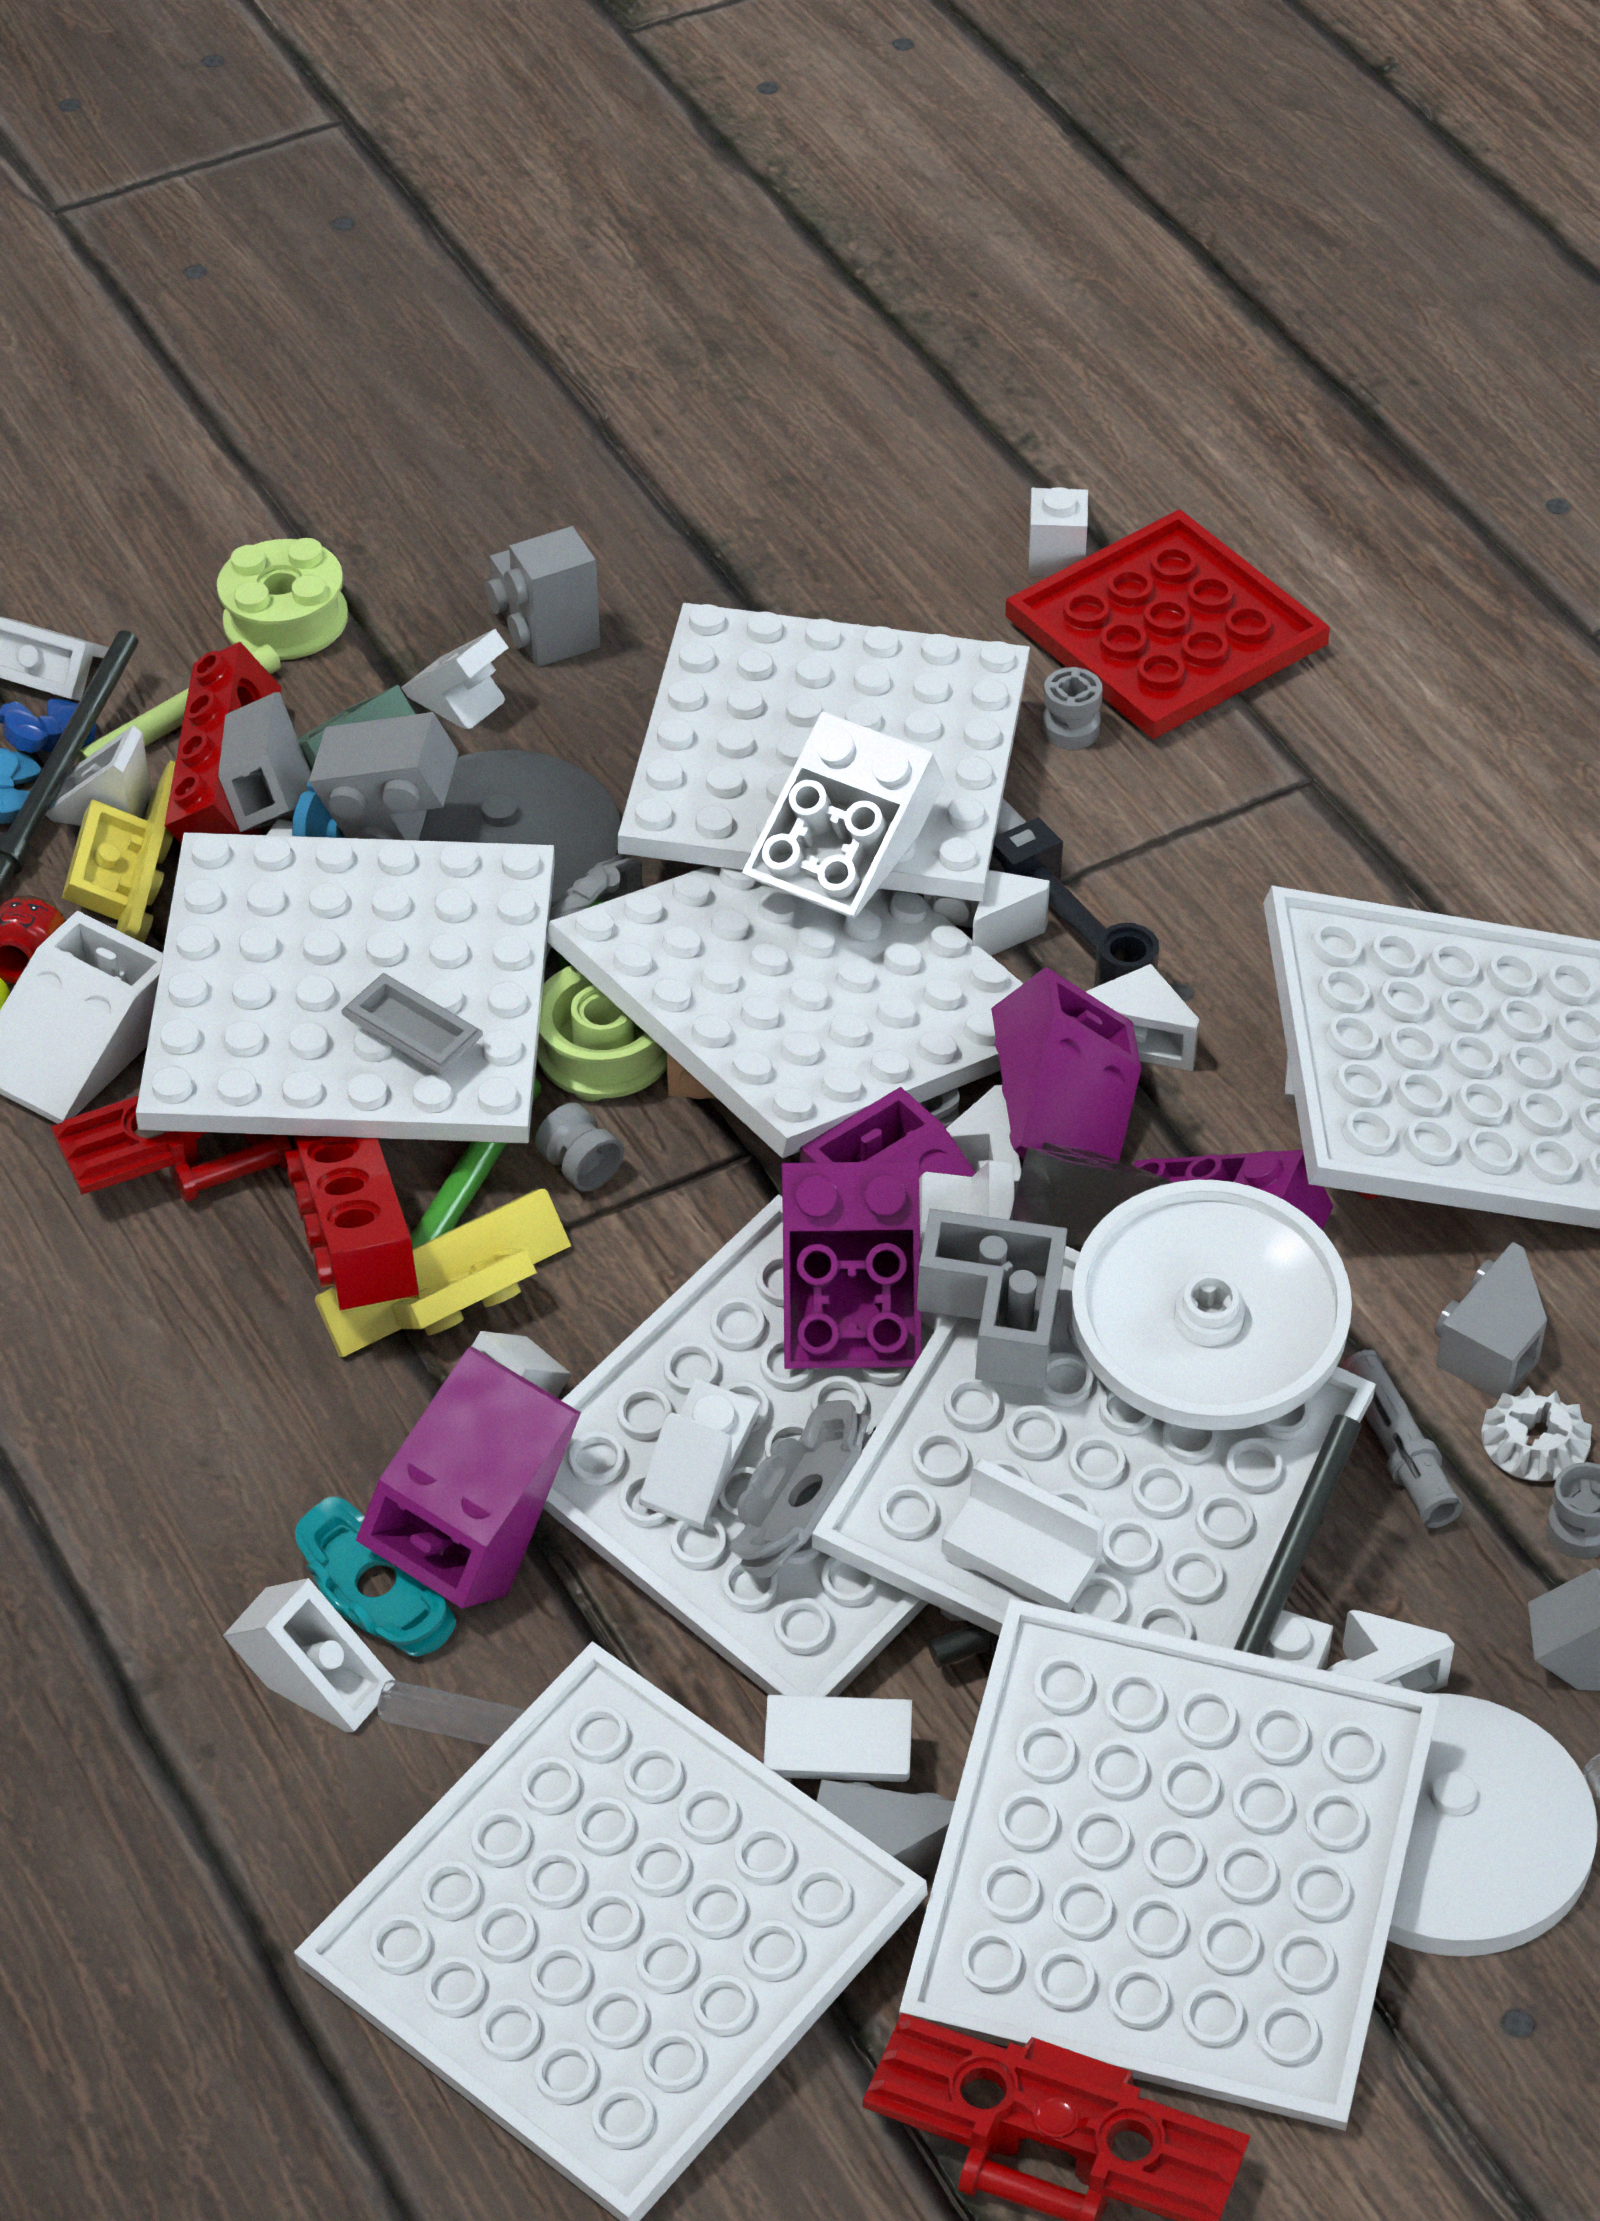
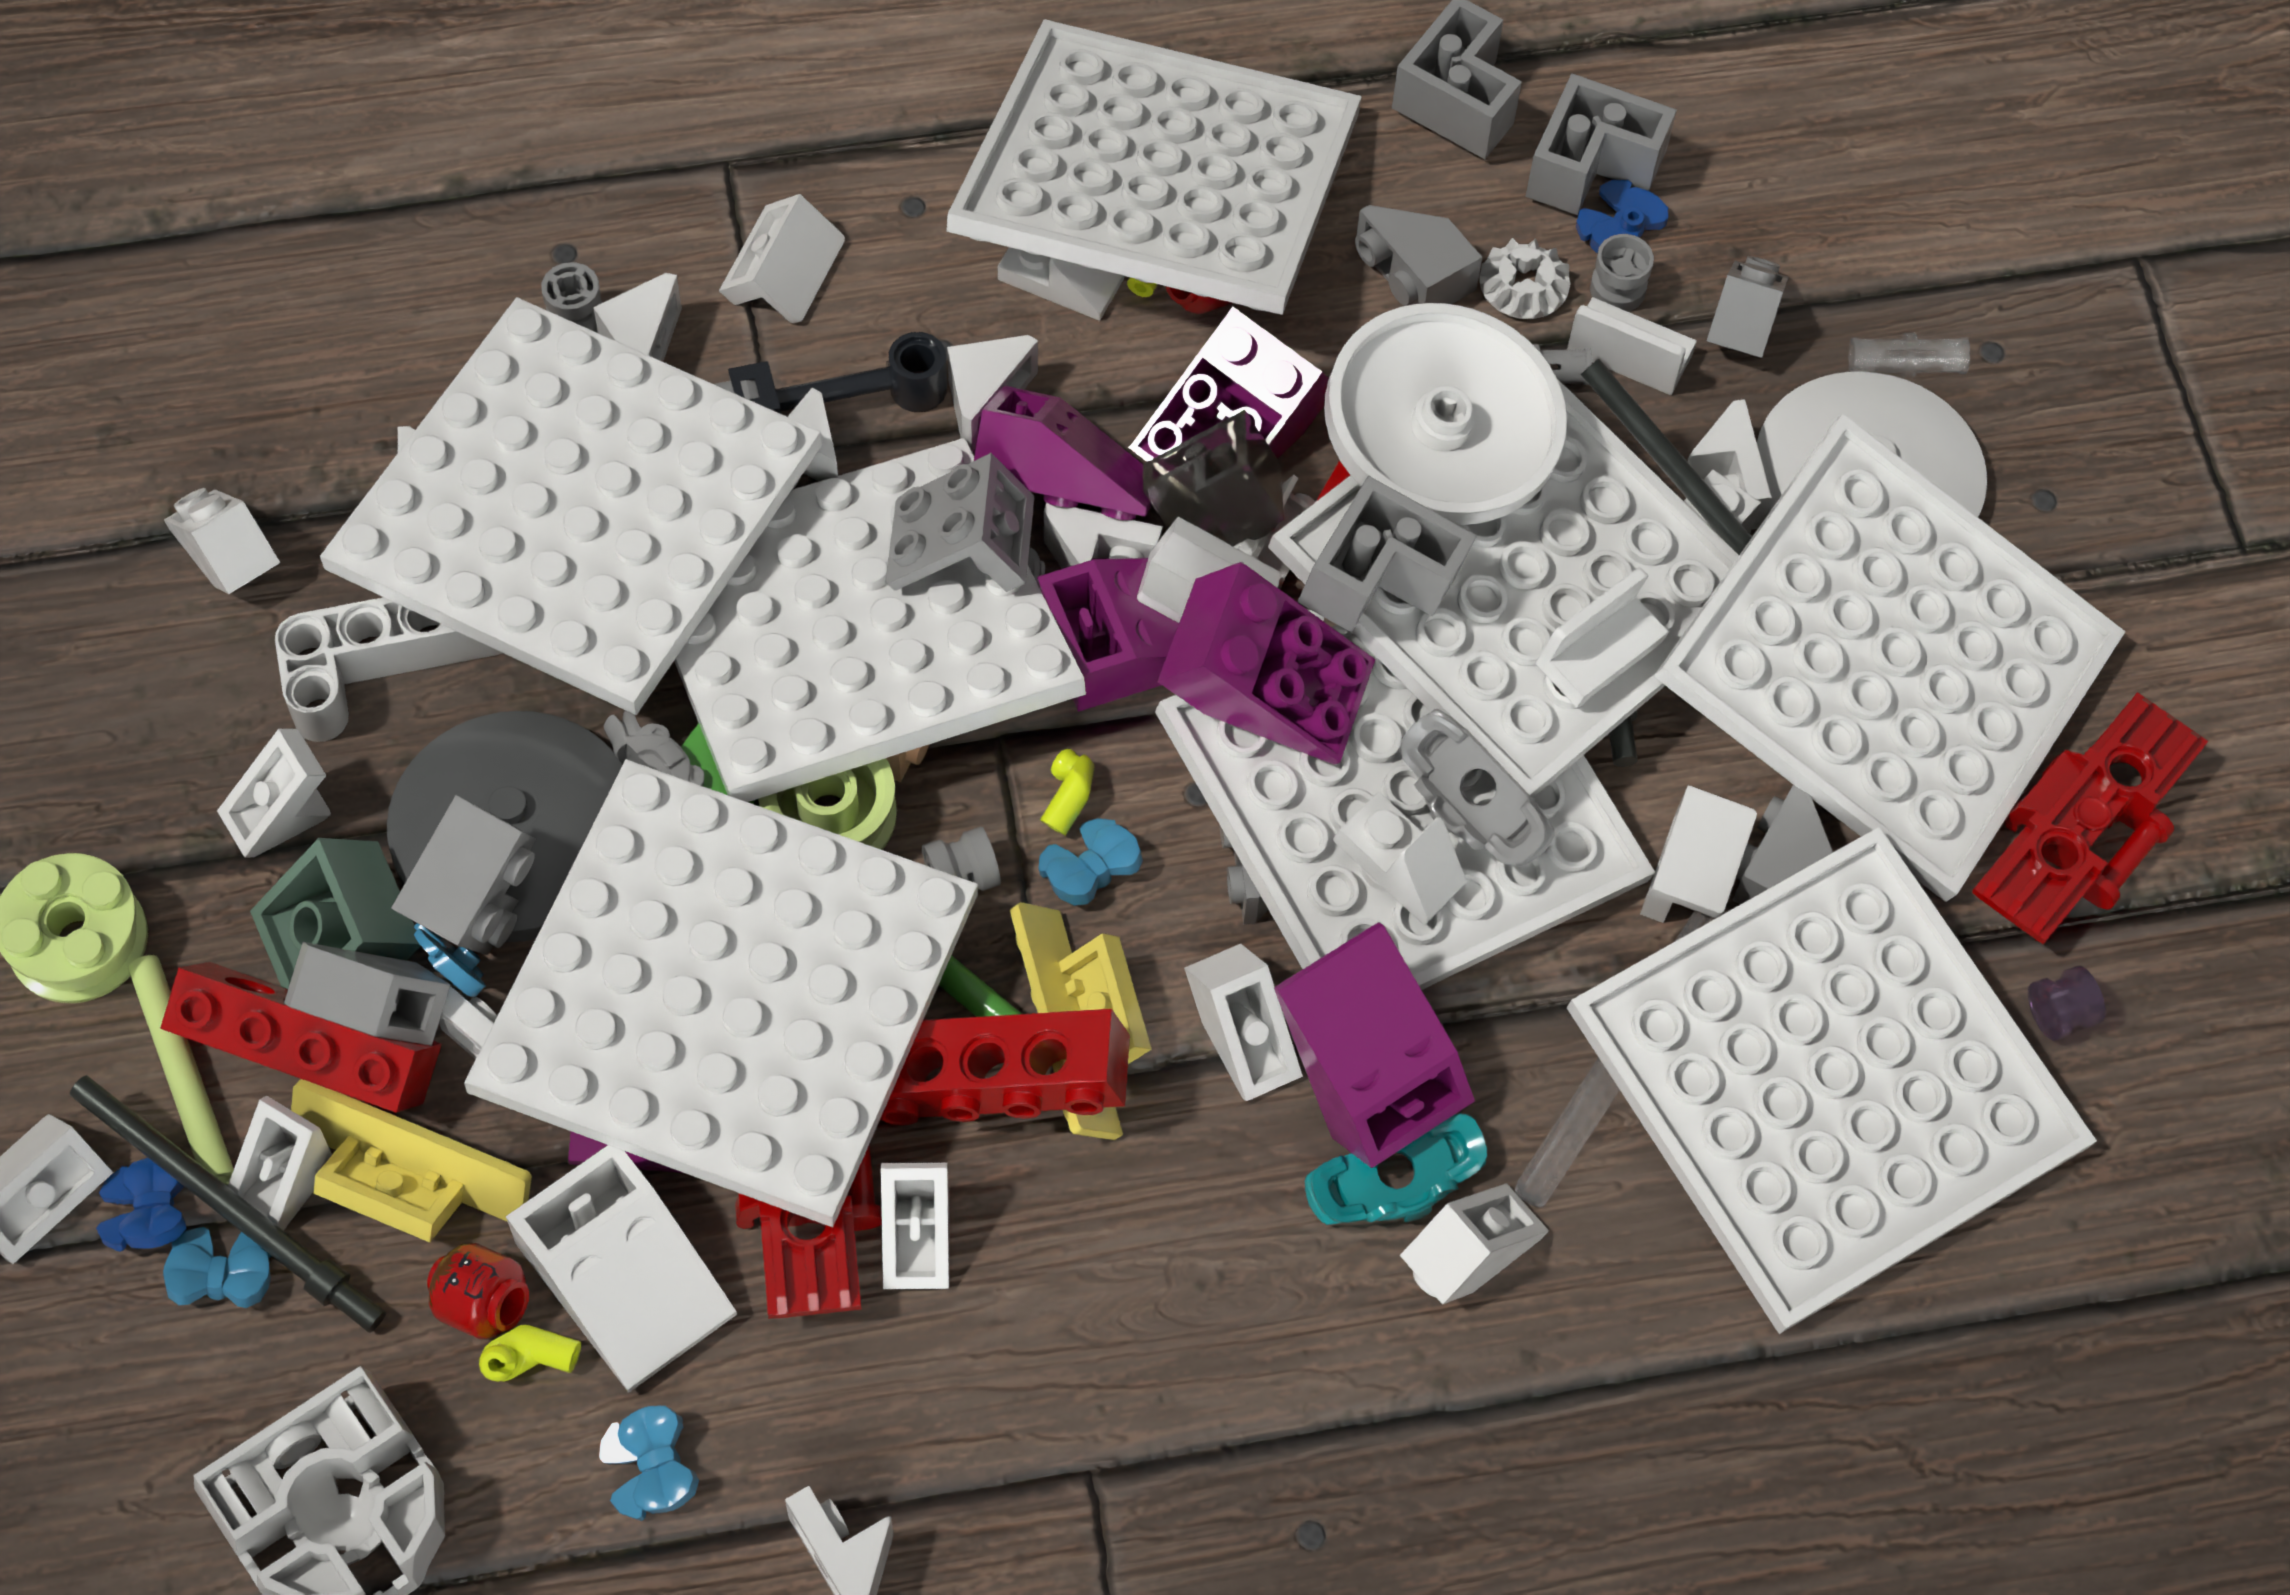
camera: 75 degrees left, 15 degrees up
(184, 1216) = (915, 1225): none -> white slope
(412, 1023) = (837, 937): light grey tile -> none
(547, 595) = (206, 683): light grey brick -> none
(598, 662) = (345, 661): none -> white beam
(617, 1240) = (1109, 852): none -> dark azure piece
(698, 562) = (221, 538): none -> white slope
(712, 1212) = (1072, 794): none -> neon yellow arm
(801, 2155) = (2066, 1002): none -> clear purple wheel
(845, 815) = (728, 504): white slope -> none
(927, 1016) = (964, 514): none -> light grey bracket
(1056, 529) = (317, 230): white slope -> none
(1064, 763) = (643, 316): none -> white slope
(1167, 622) = (488, 193): red plate -> none
(1209, 844) = (784, 258): none -> white panel
(1500, 1549) = (1631, 345): none -> white panel

